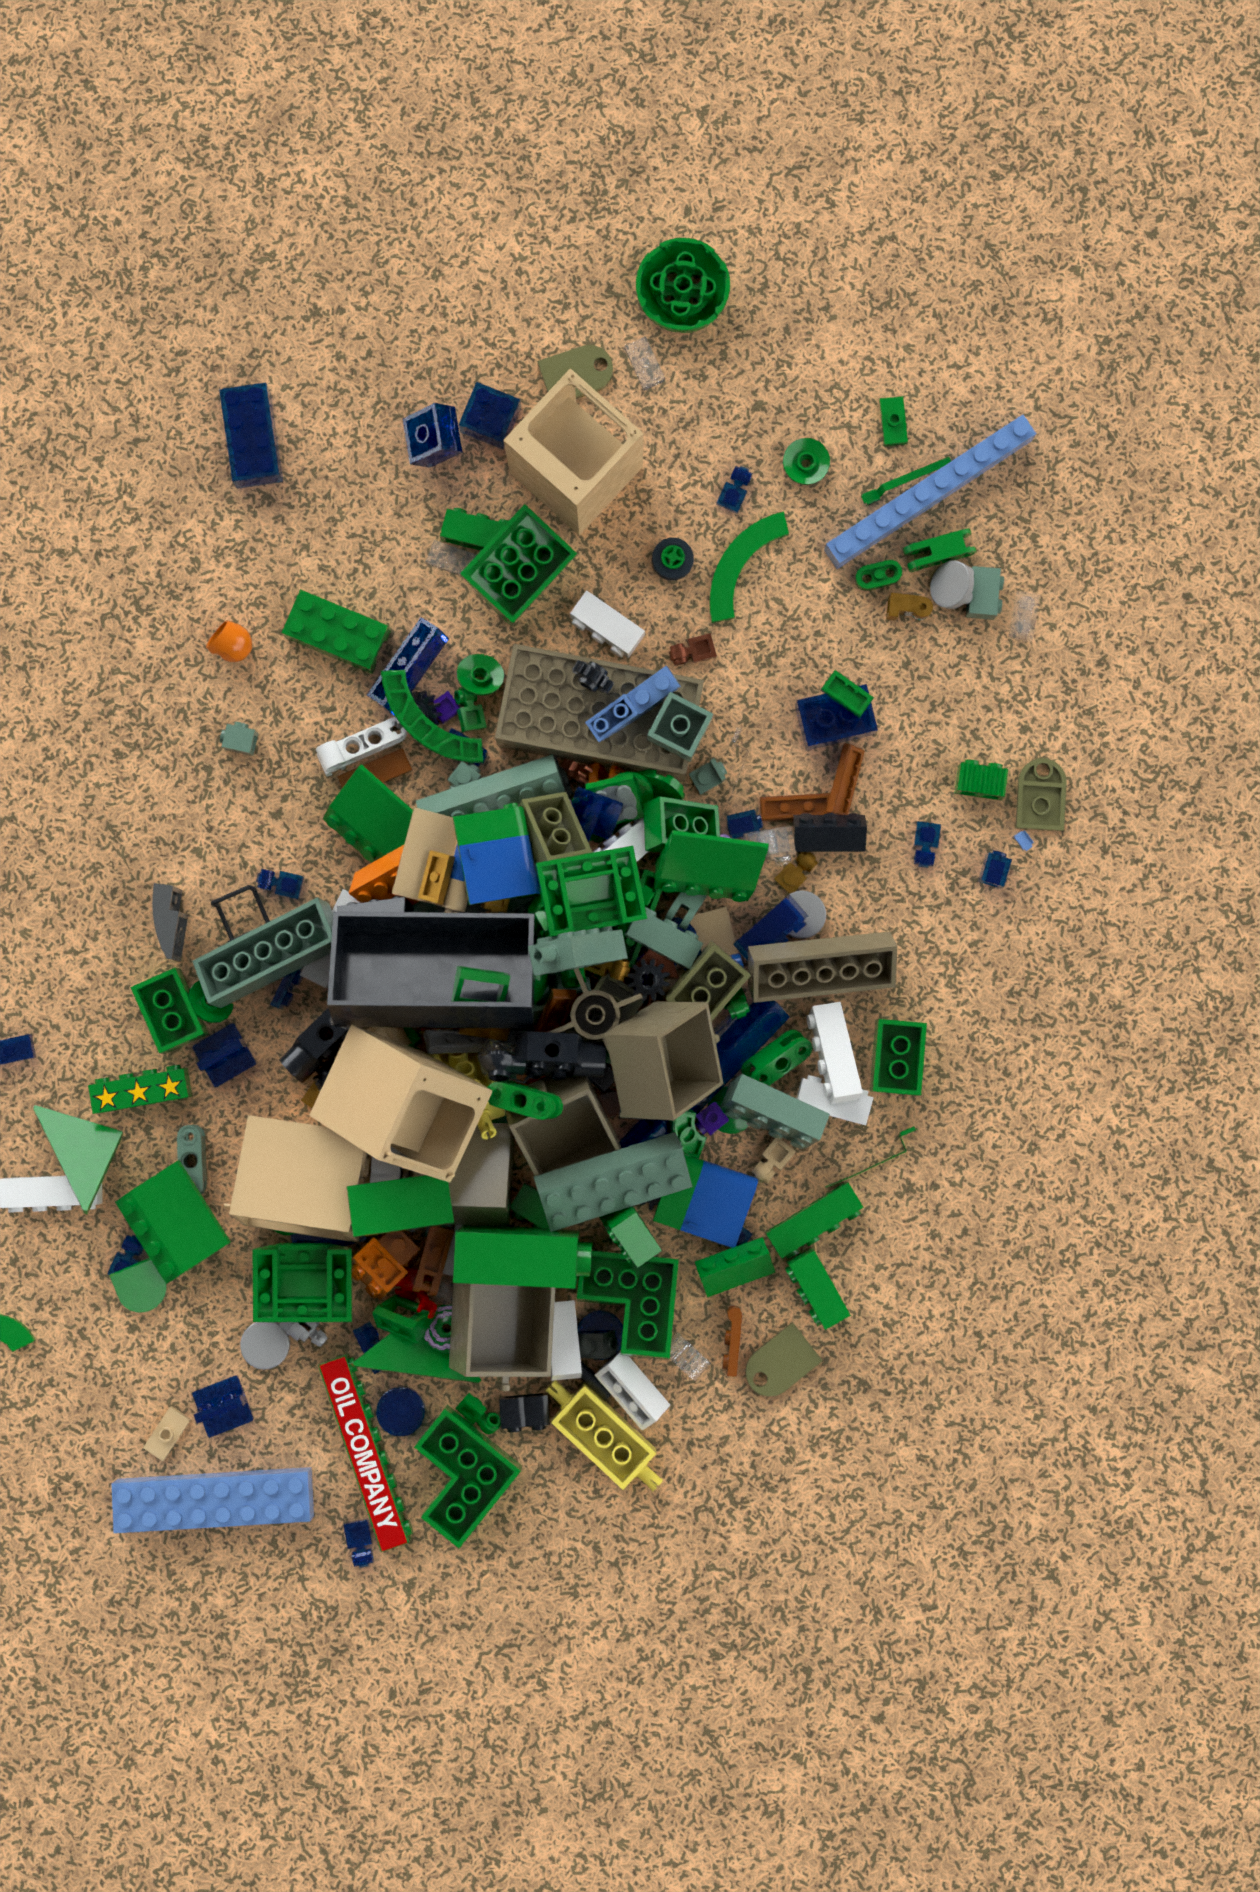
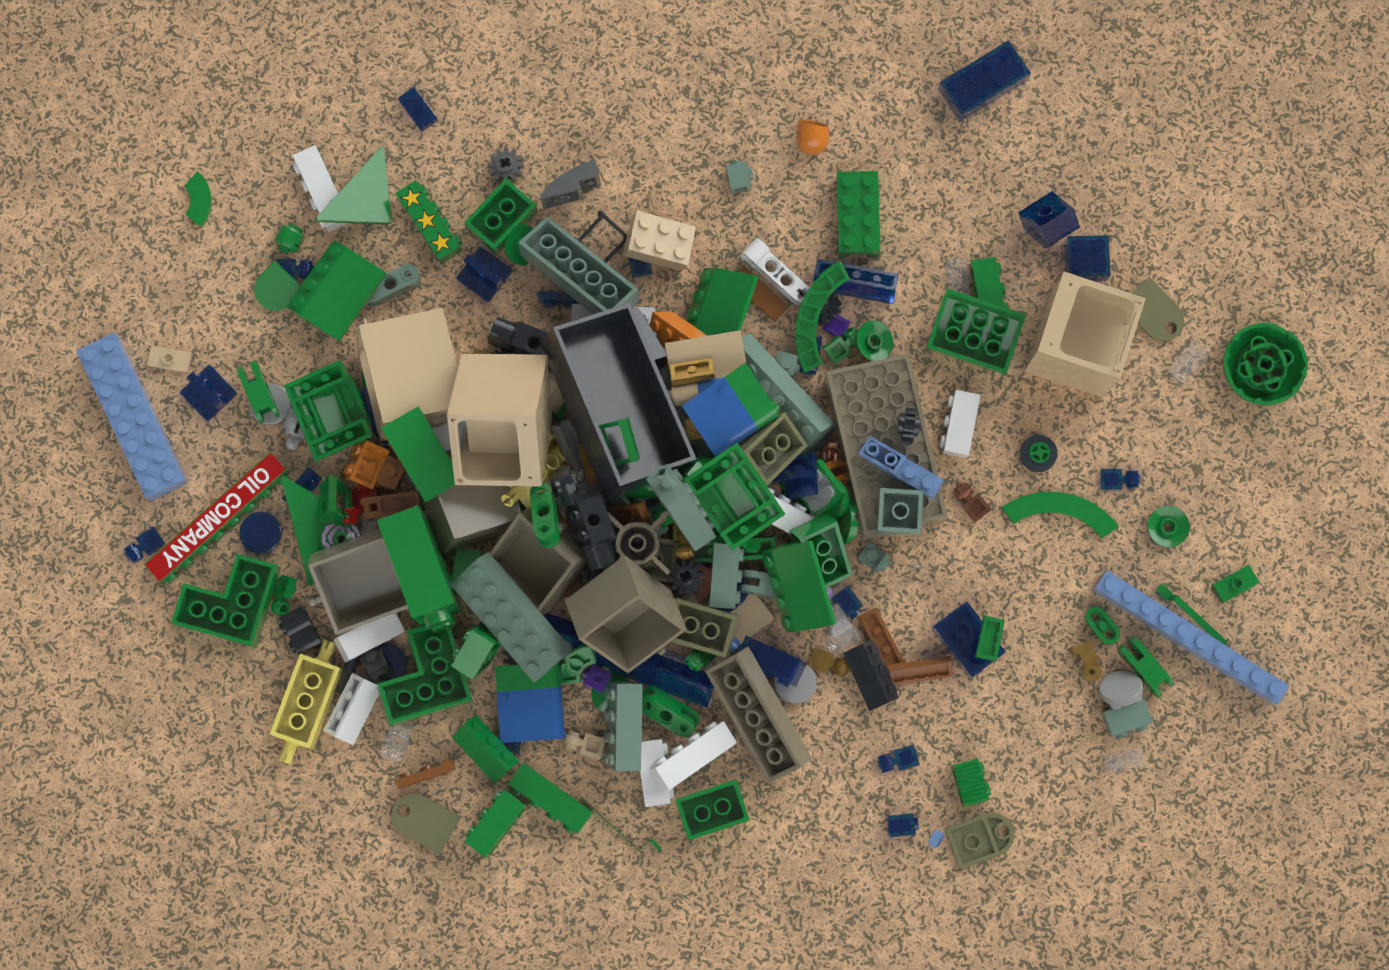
camera: 70 degrees right, 5 degrees down
(91, 1249) = (289, 238): none -> green head
(123, 983) = (504, 158): none -> dark grey gear
(246, 1352) = (258, 392): none -> green piece
(272, 853) = (659, 241): none -> tan brick

